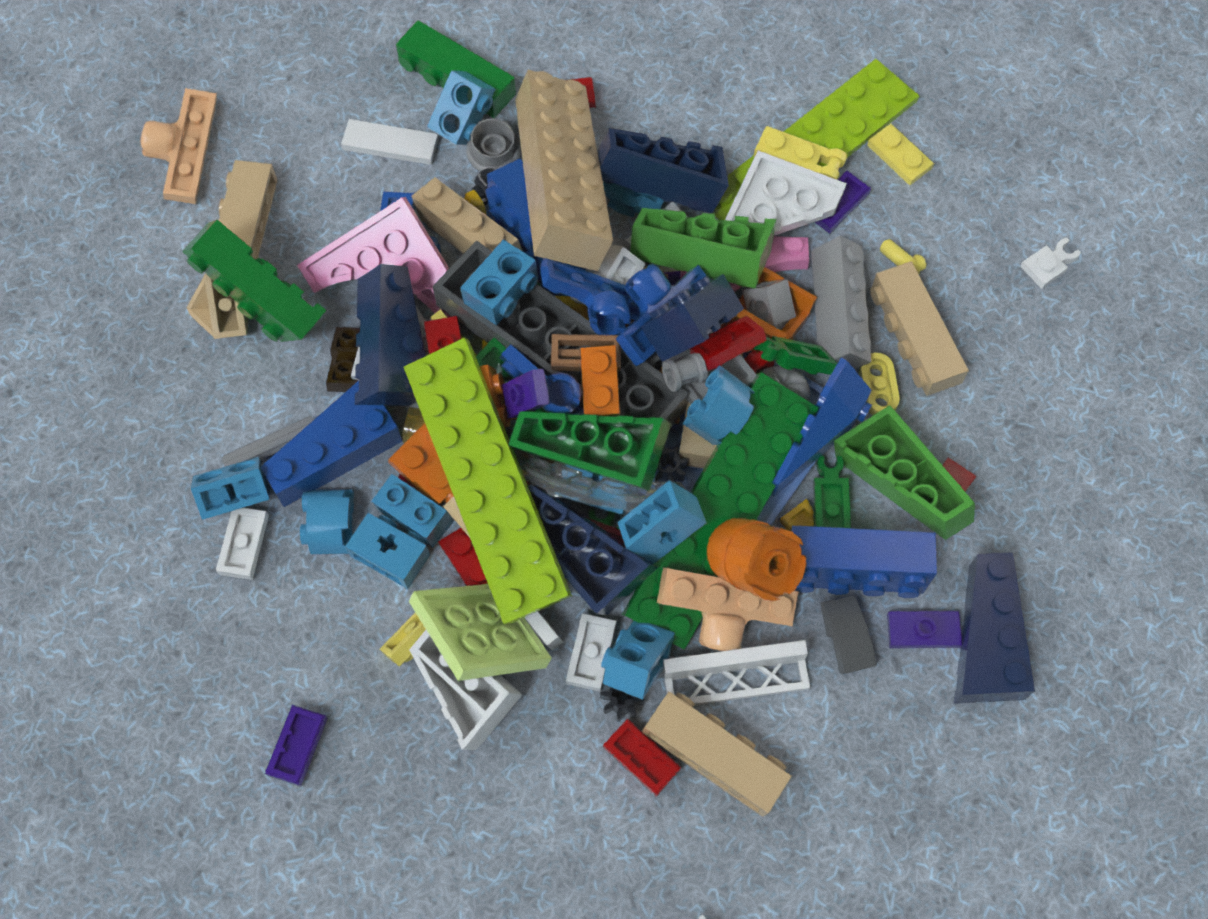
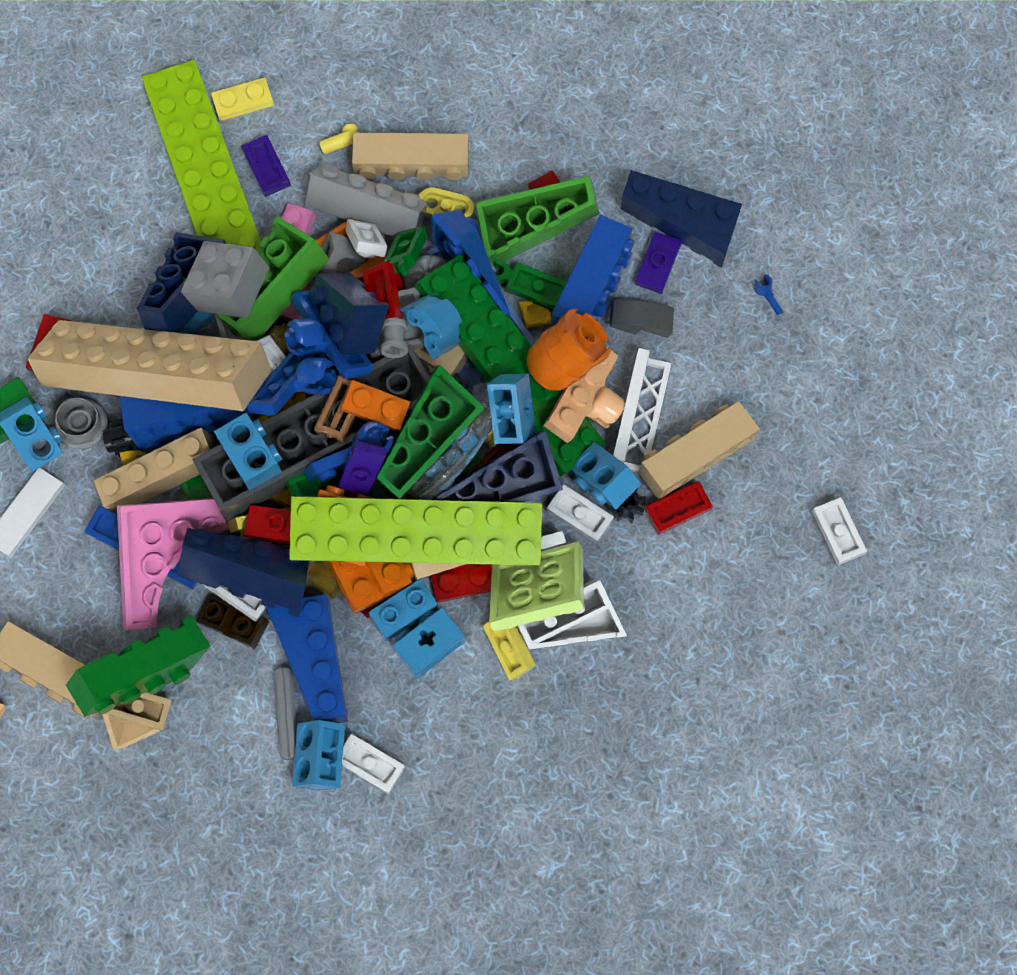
camera: 70 degrees left, 5 degrees up
(296, 745) = (566, 772): dark purple plate -> none
(327, 520) = (379, 683): dark azure cylinder -> none
(679, 194) = (225, 279): none -> light grey brick
(785, 193) = (246, 202): white plate -> none
(794, 313) = (366, 238): none -> white plate
(801, 152) = (212, 175): light yellow plate -> none
(947, 766) = (767, 293): none -> blue hand
(1049, 265) = (395, 36): white plate -> none

